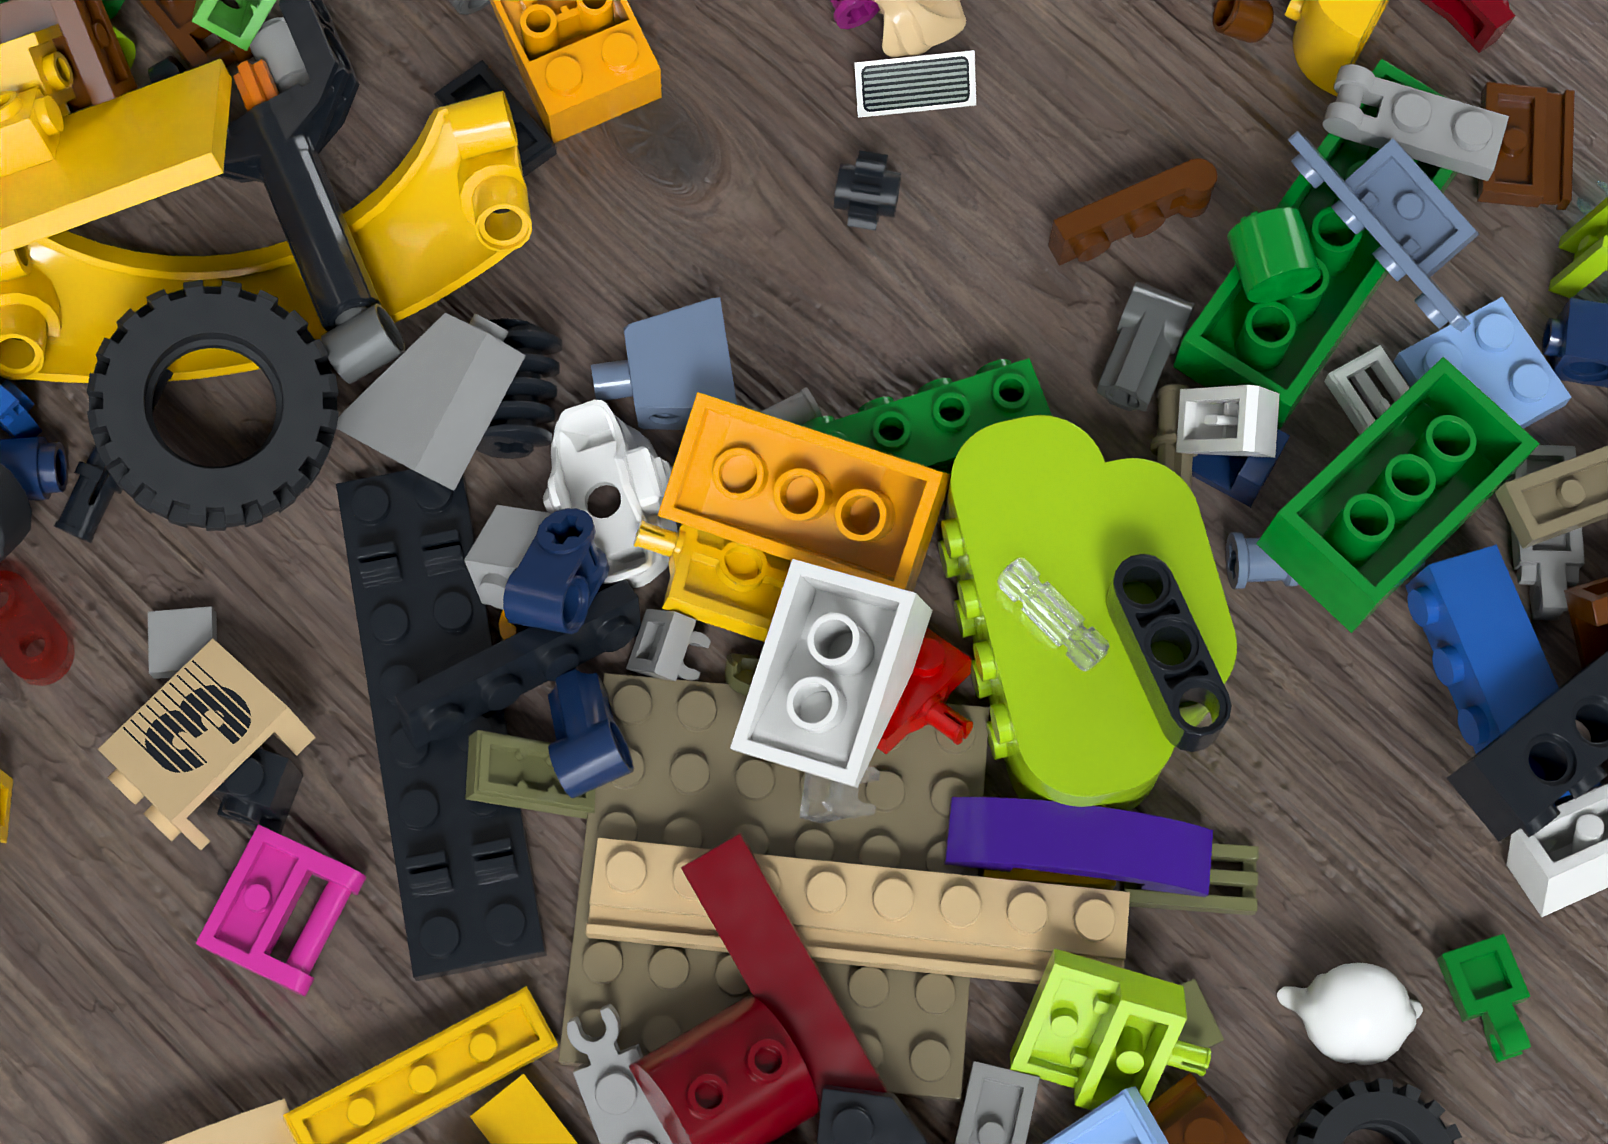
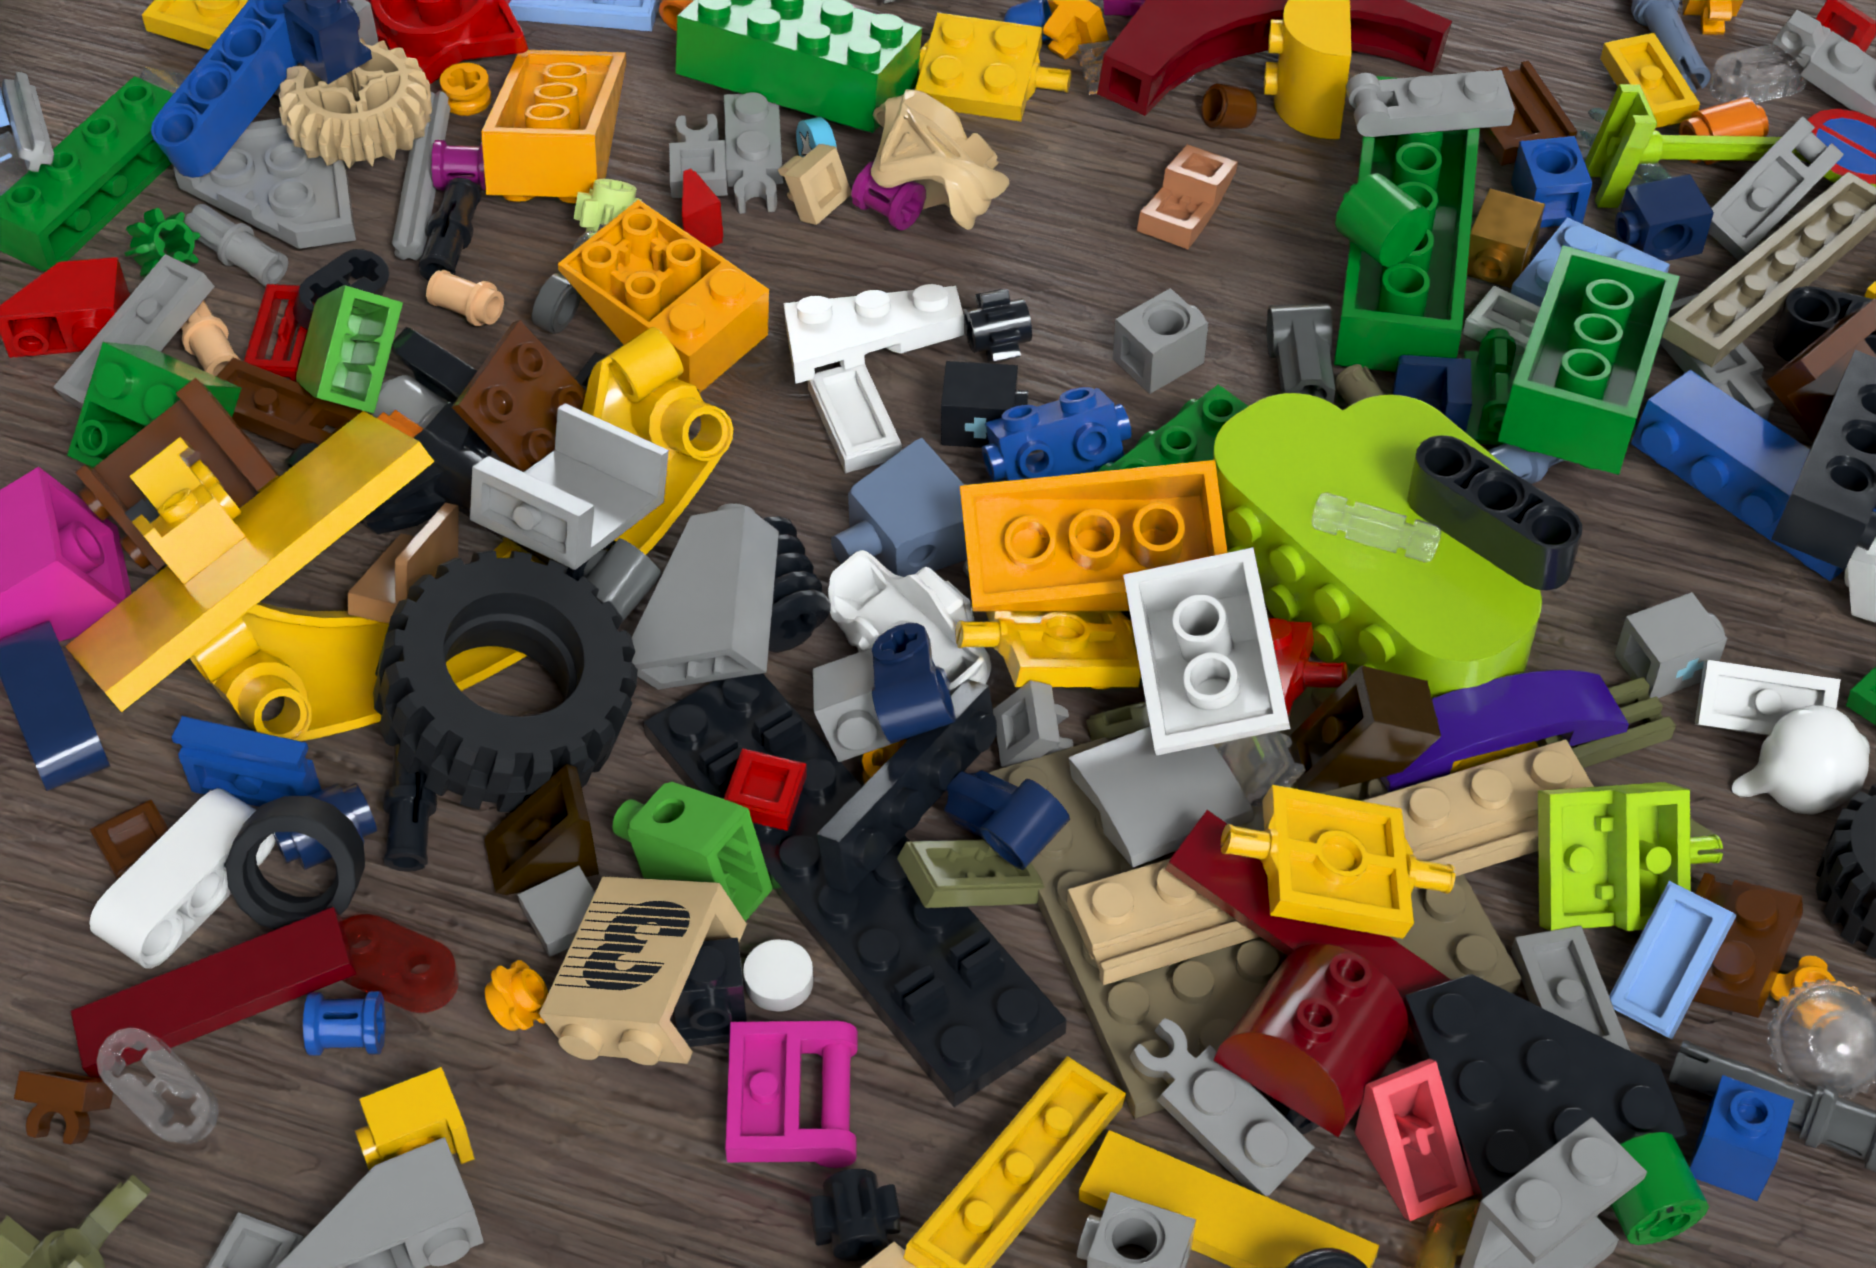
camera: 25 degrees left, 20 degrees down
(98, 713) = (516, 996): none -> light orange plate
(196, 568) = (543, 837): none -> dark brown slope
(200, 238) = (403, 564): none -> medium nougat panel
(269, 1055) = (855, 1214): none -> black gear
(304, 647) = (696, 839): none -> bright green torso
(329, 789) = (778, 975): none -> white tile
(352, 241) = (575, 496): none -> light grey panel
(359, 118) = (517, 398): none -> reddish brown plate
(393, 611) = (767, 787): none -> red tile
(690, 229) = (854, 417): none -> white tile
(723, 791) = (1155, 800): none -> light grey slope
(737, 130) = (852, 326): none -> white wing
(806, 274) = (974, 396): none -> black brick
(827, 939) = (1337, 861): none -> yellow plate
(849, 348) = (1074, 432): none -> blue brick
(915, 83) = (989, 240): sticker -> none
(940, 810) = (1365, 730): none -> dark brown slope
(1001, 293) = (1160, 340): none -> light grey brick
(1133, 211) = (1236, 256): reddish brown plate -> none
(1141, 109) = (1188, 196): none -> nougat slope
(1228, 421) = (1418, 354): white slope -> none
(1304, 828) = (1670, 644): none -> light grey brick
(1309, 450) = (1492, 379): none -> green hinge
(1354, 924) = (1757, 697): none -> white plate
(1400, 318) = (1503, 237): none -> pearl gold brick
(1403, 213) = (1465, 159): sand blue bracket -> none
(1503, 270) = (1553, 175): none -> blue brick

